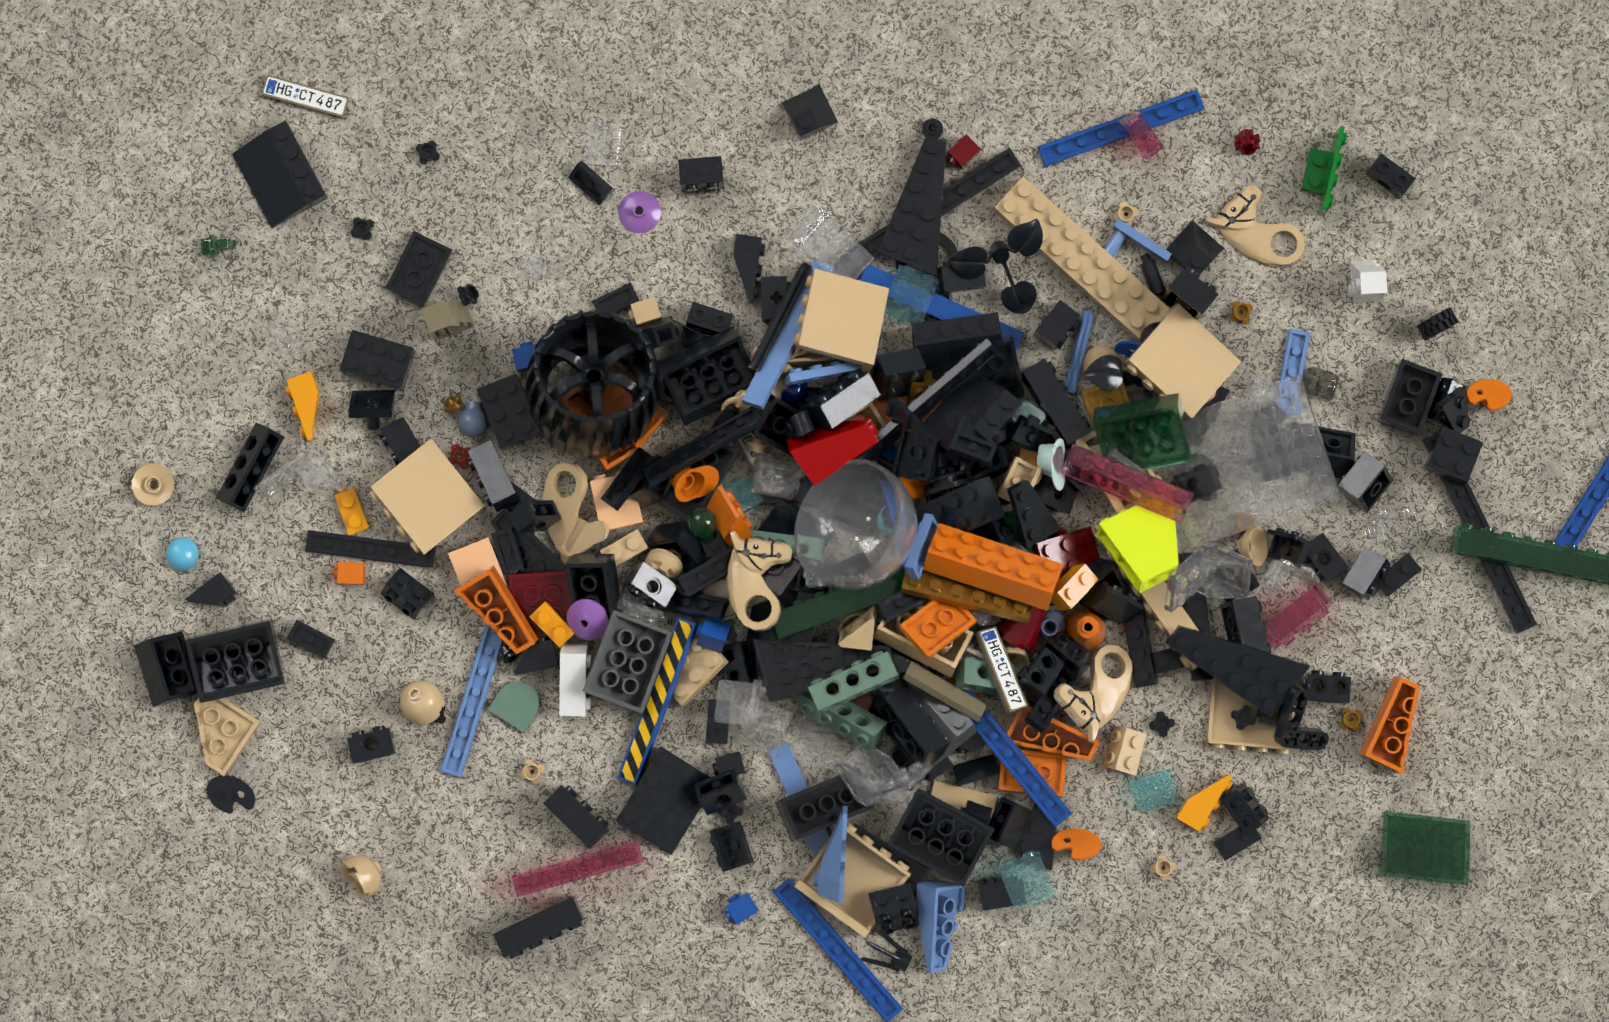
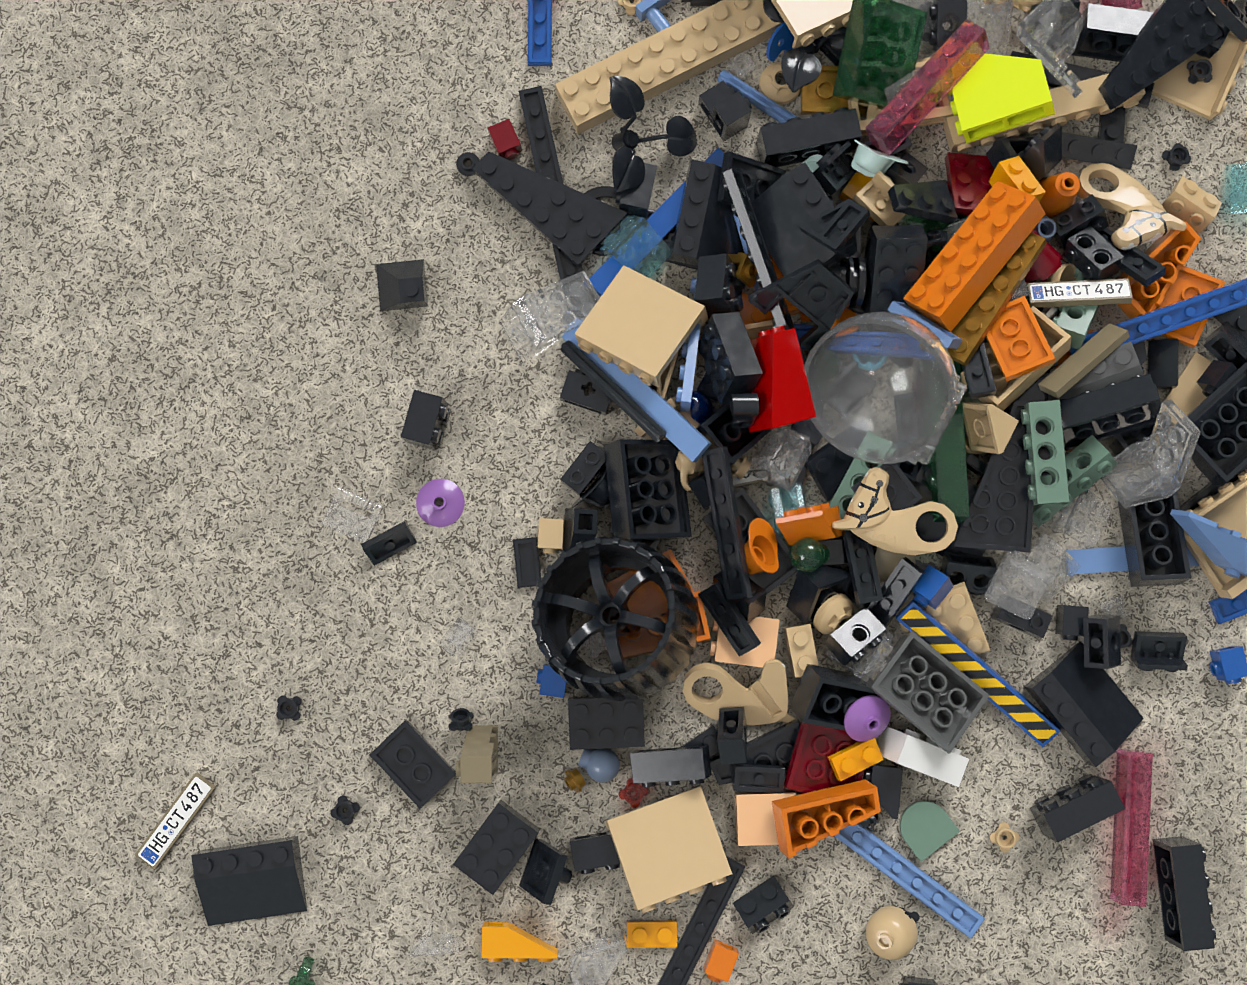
camera: 70 degrees left, 0 degrees up
(746, 256) = (534, 406): black slope -> none

